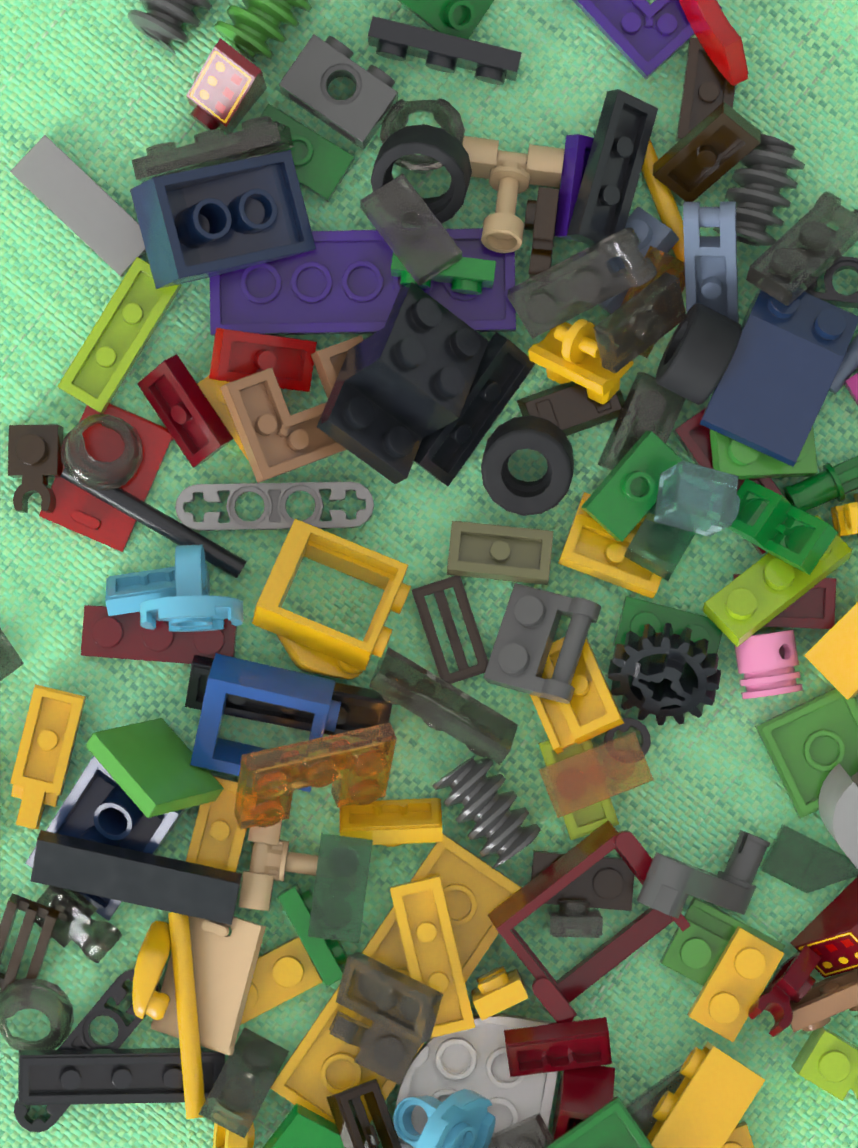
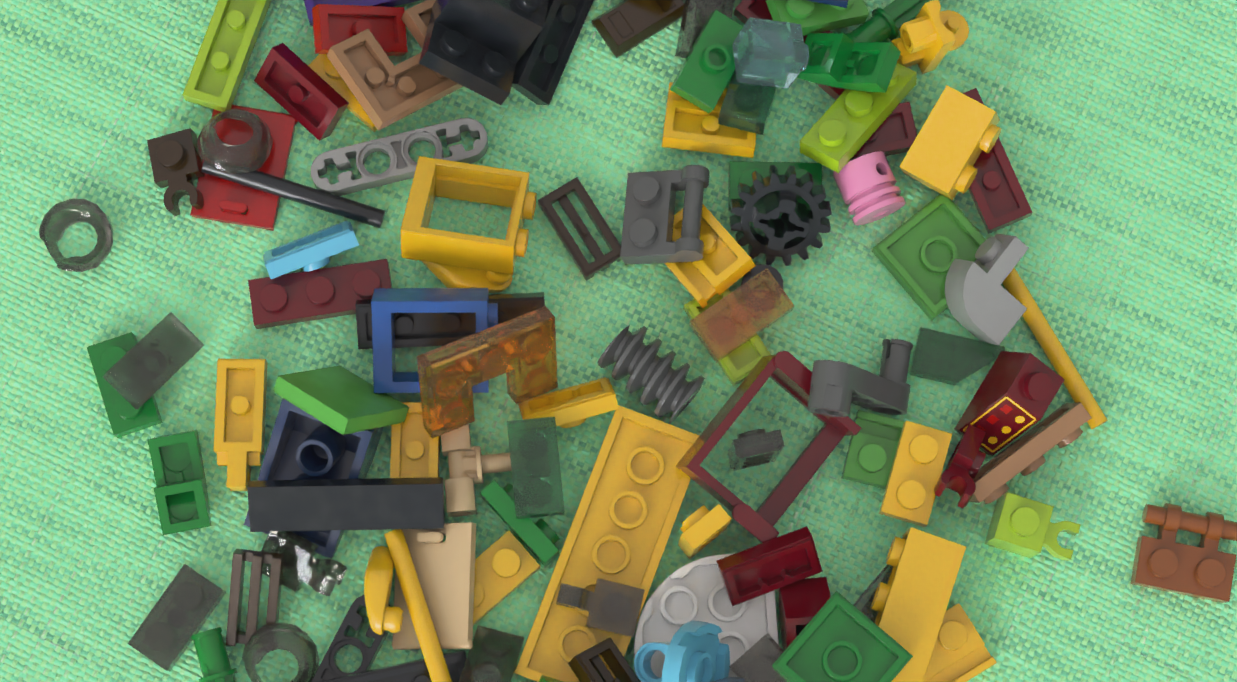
camera: 15 degrees left, 10 degrees down
(191, 607) = (342, 247): medium azure tile -> none
(389, 998) = (604, 555): clear smoke plate -> none
(433, 950) = (635, 512): yellow plate -> none
(443, 706) = (590, 291): clear smoke plate -> none
(500, 552) = (608, 149): olive plate -> none
(531, 496) = (642, 72): black tyre -> none
(604, 884) = (764, 411): dark brown plate -> none

